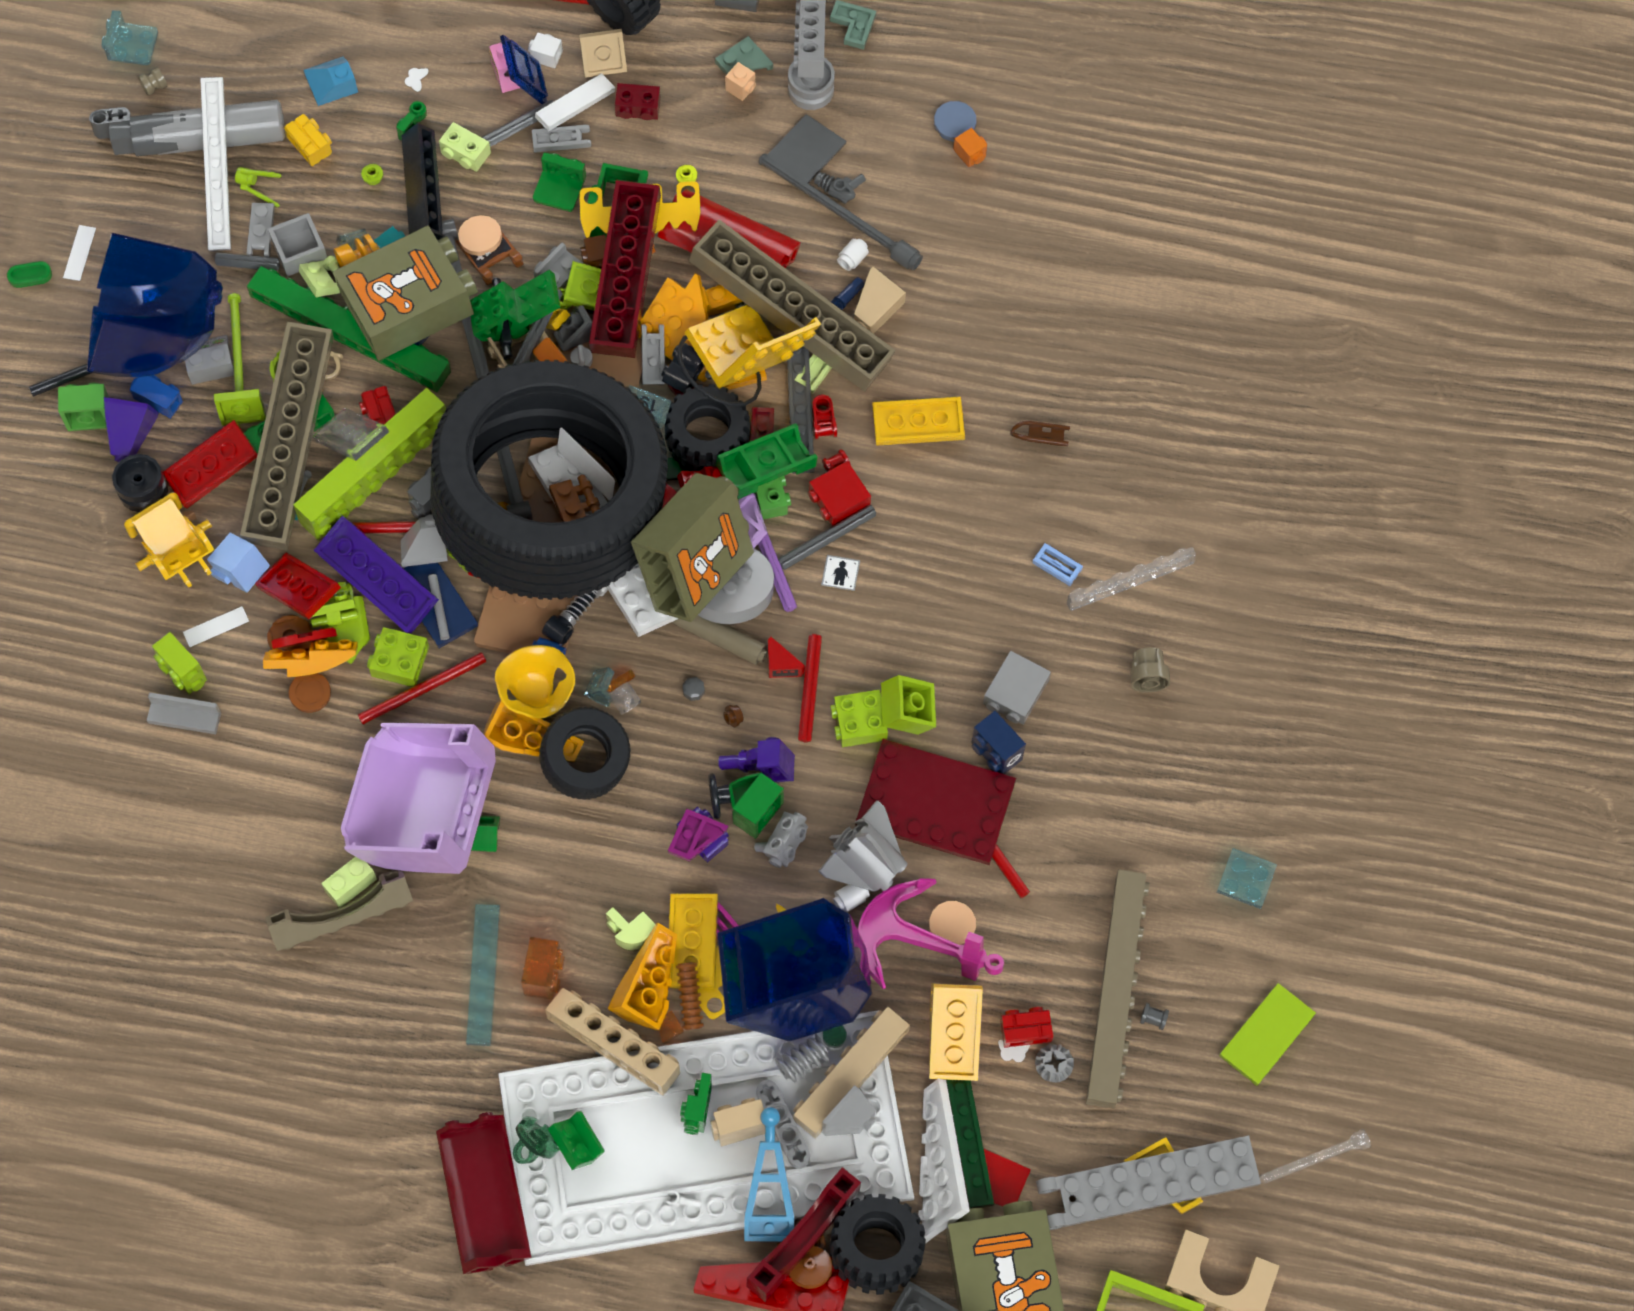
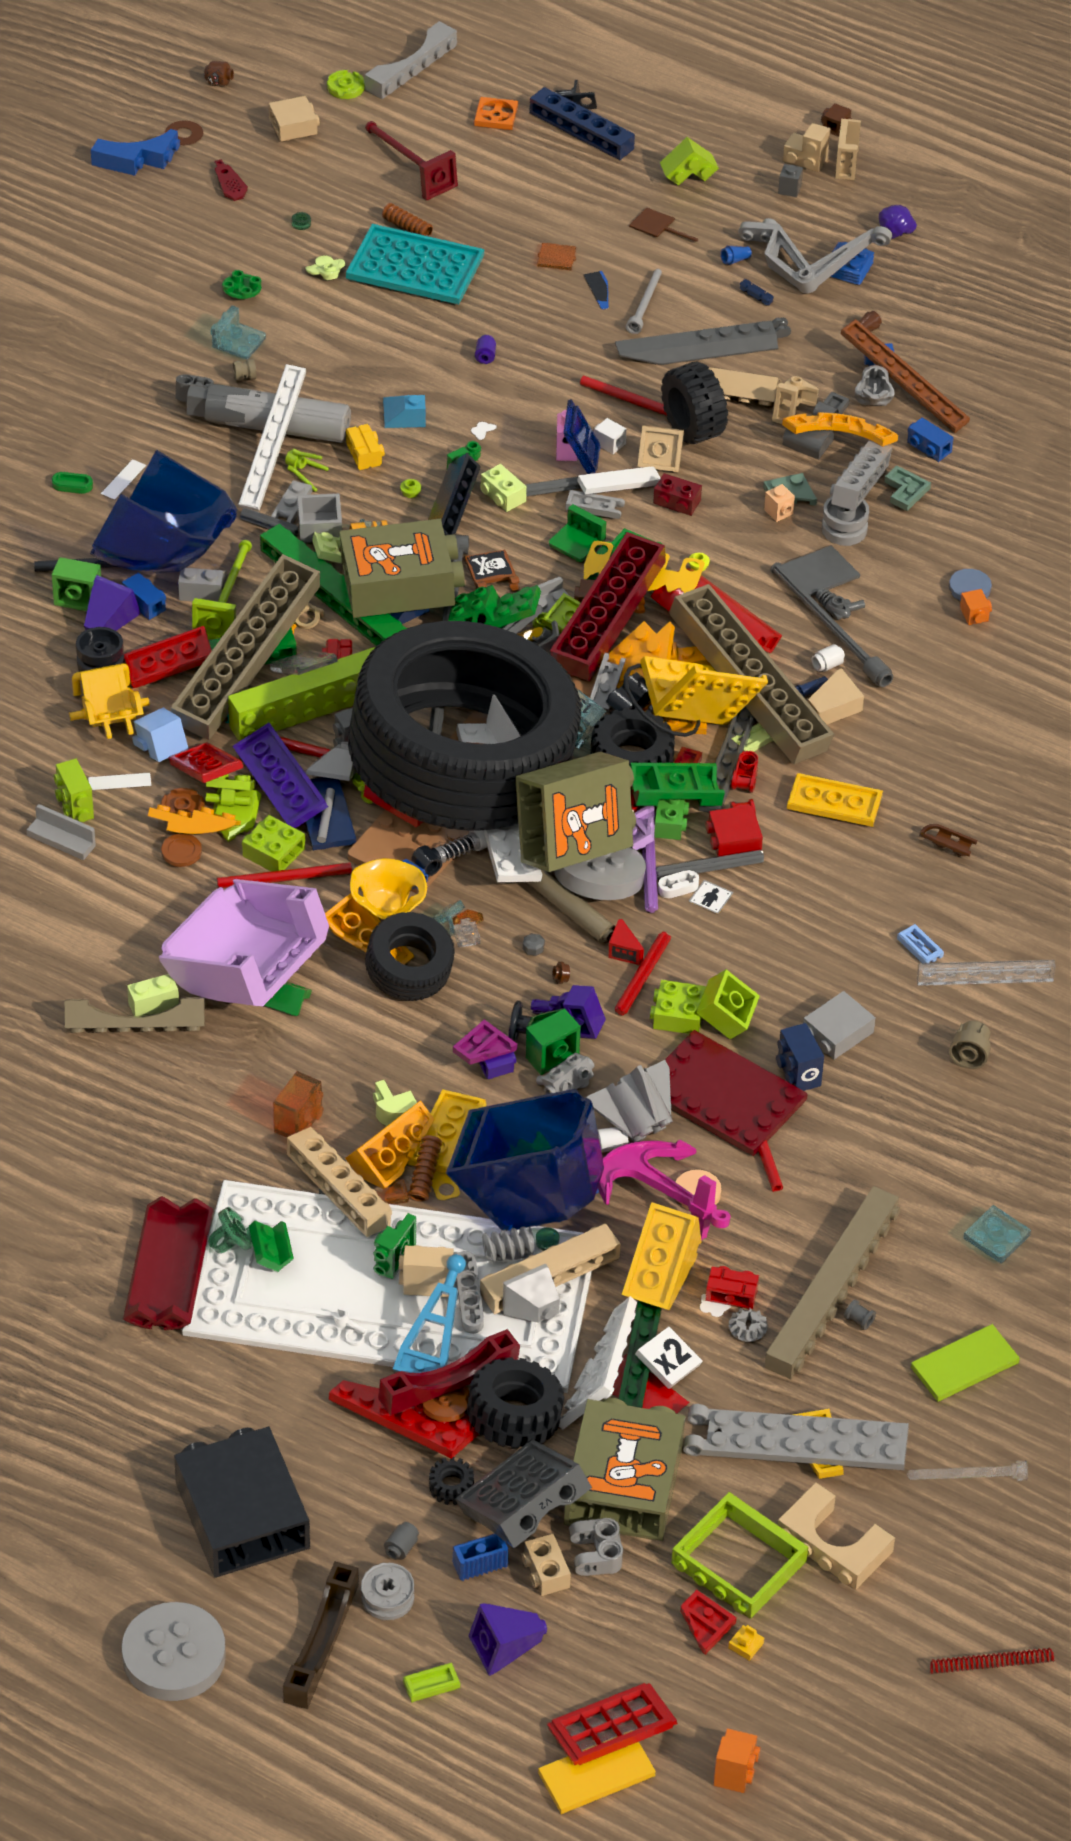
camera: 20 degrees right, 20 degrees down
(297, 639) = (182, 801): red tile -> none
(480, 235) = (488, 555): light nougat tile -> none
(483, 975) = (243, 1104): clear light blue tile -> none
(802, 566) = (678, 884): none -> white beam
(997, 1132) = (668, 1357): none -> white tile

